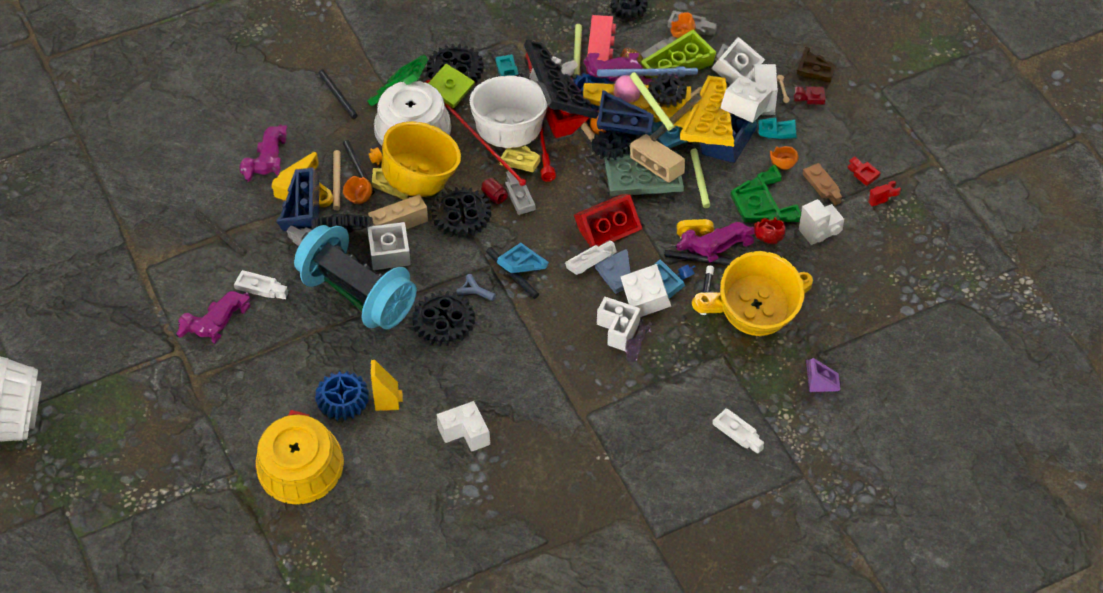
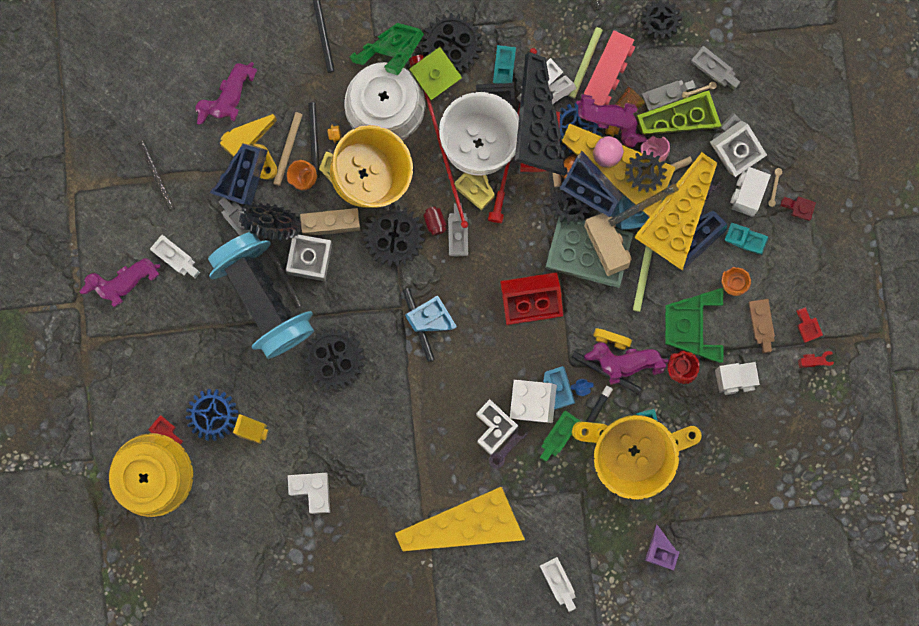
camera: 20 degrees right, 30 degrees up
(474, 289) = (376, 331): sand blue piece -> none
(590, 257) = (498, 337): white hinge -> none
(613, 268) = (518, 359): sand blue wing -> none
(626, 412) = (472, 523): none -> yellow wing
(650, 99) = (623, 183): yellowish green bar -> none
(678, 71) = (673, 138): medium blue bar -> none
(681, 316) = (558, 435): none -> green hinge
(683, 25) = (702, 77): orange hair -> none
(746, 99) = (720, 212): white brick -> none
(815, 66) = (819, 172): dark brown wing -> none

